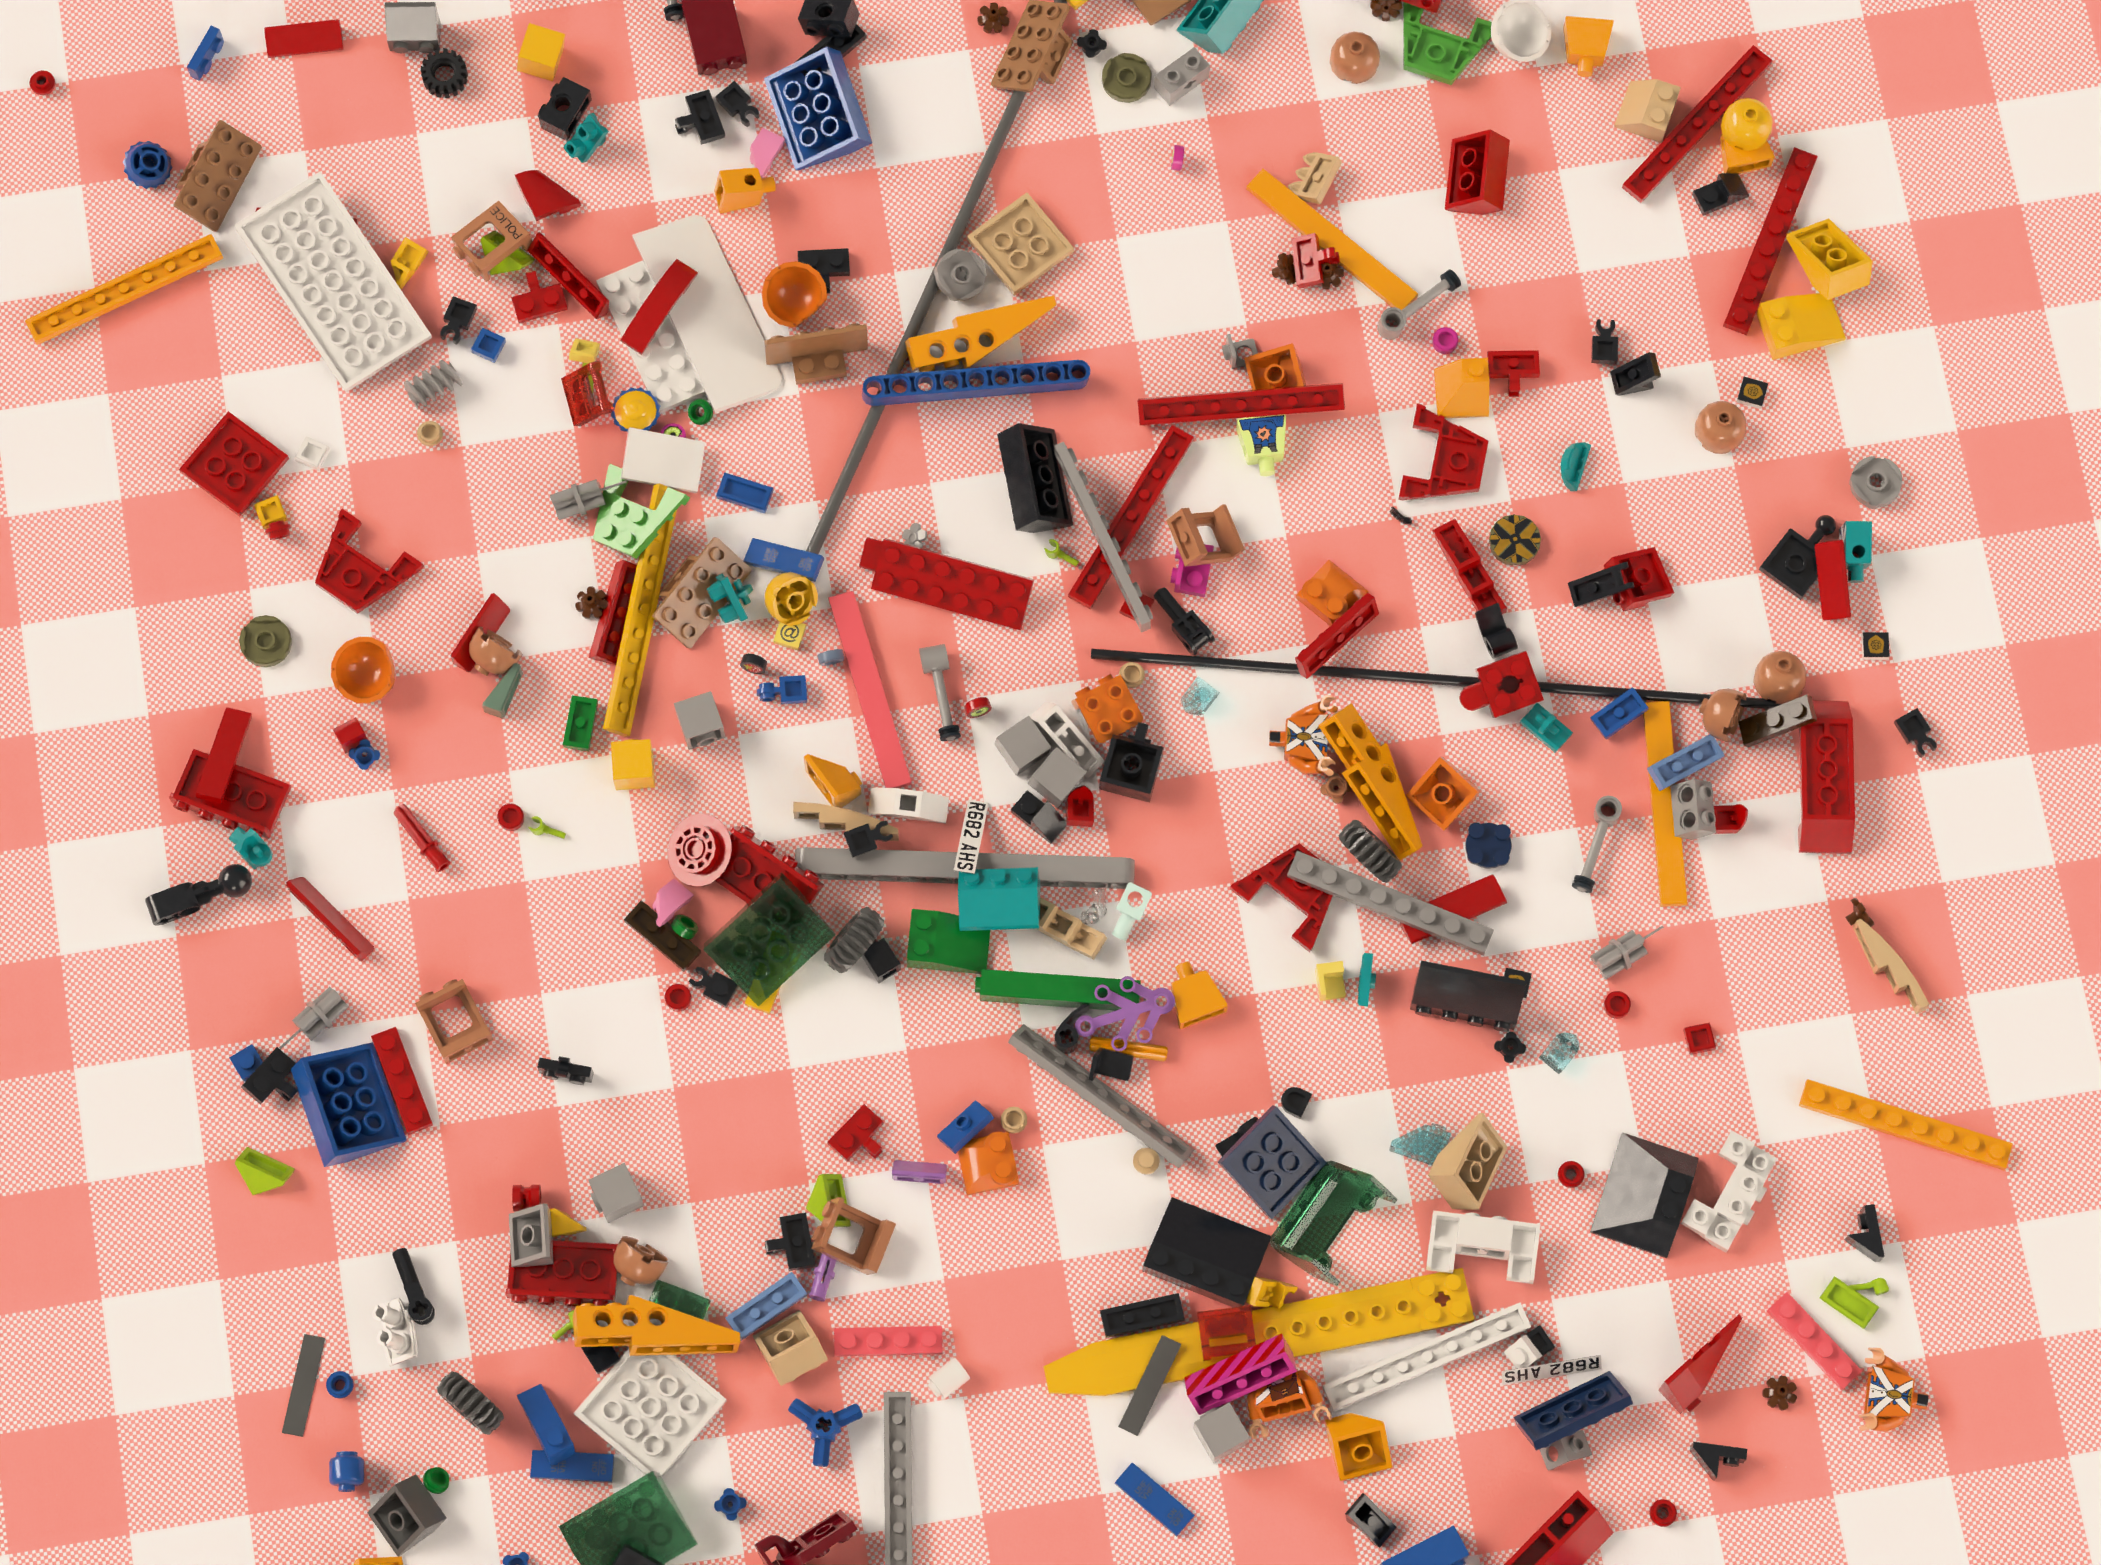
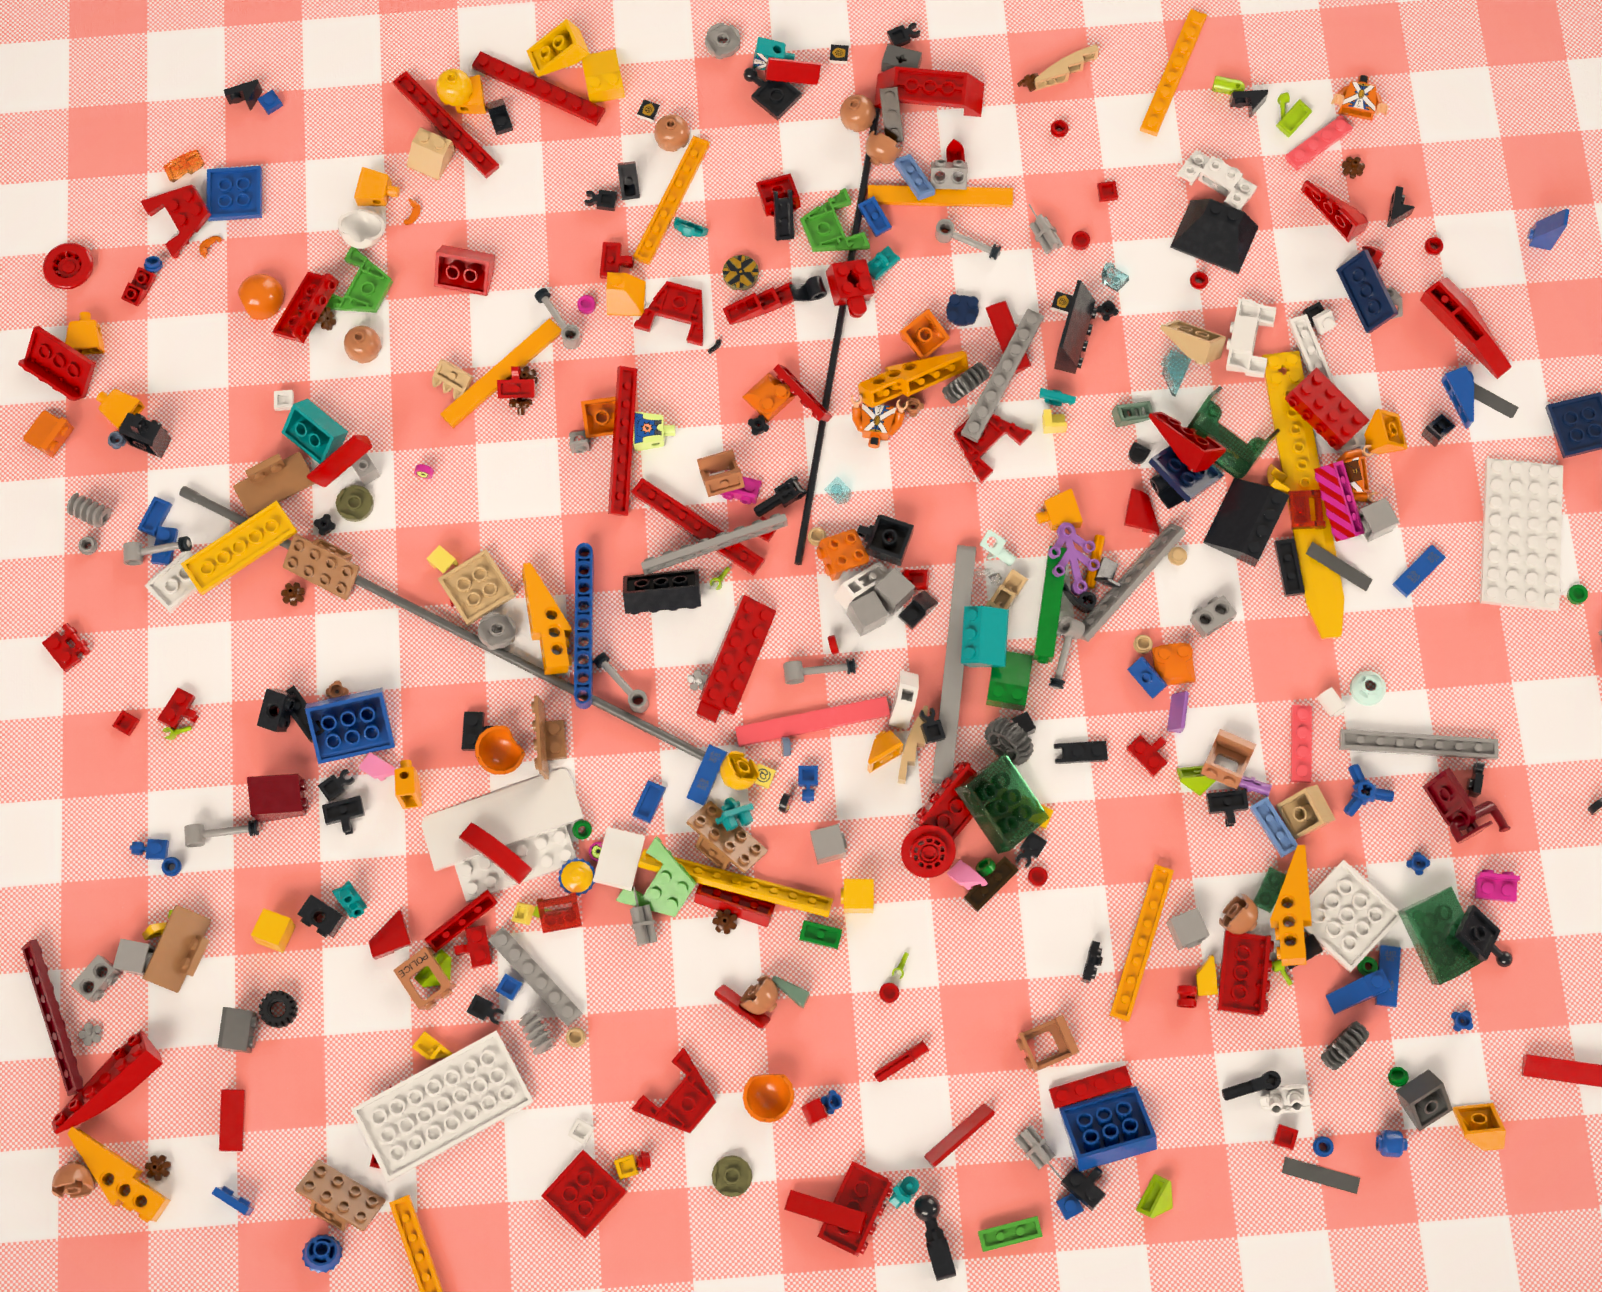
camera: 80 degrees left, 0 degrees up
(208, 988) = (1010, 1234): none -> bright green plate
(349, 1333) = (1285, 1137): none -> red plate
(505, 376) = (535, 976): none -> light grey plate
(531, 1237) = (1221, 992): light grey slope -> none
(586, 1445) = (1361, 966): none -> green plate
(596, 1136) = (1141, 943): none -> light orange plate
(854, 1047) = (1082, 752): none -> black hinge
(865, 82) = (337, 685): none -> nougat plate
(930, 413) = (602, 661): none -> light grey piece
(971, 836) = (933, 654): white sticker -> none
(976, 1445) = (1364, 696): none -> light aqua piece
(1022, 1015) = (1071, 630): none -> light grey piece
(1053, 194) = (441, 559): none -> light yellow panel
(1054, 1214) = (1215, 619): none -> light grey brick
(1175, 47) = (340, 460): none -> red slope
(1205, 1107) = (1141, 513): none -> red slope
(1287, 590) = (761, 429): none -> black plate
(1303, 1163) = (1188, 446): none -> red wedge
(1361, 1078) = (1121, 416): none -> sand green slope
(1382, 1357) = (1326, 409): none -> red bracket
(1551, 1370) = (1335, 306): white sticker -> none
(1557, 101) = (414, 214): none -> orange piece
(1592, 646) = (825, 230): none -> bright green wing
(1617, 437) = (671, 200): none -> light orange tile
(1624, 1424) = (1376, 255): none -> red plate
(1791, 956) = (1059, 124): none -> red plate
(1878, 720) = (896, 55): none -> dark grey brick
(1890, 1202) = (1227, 85): none -> lime piece

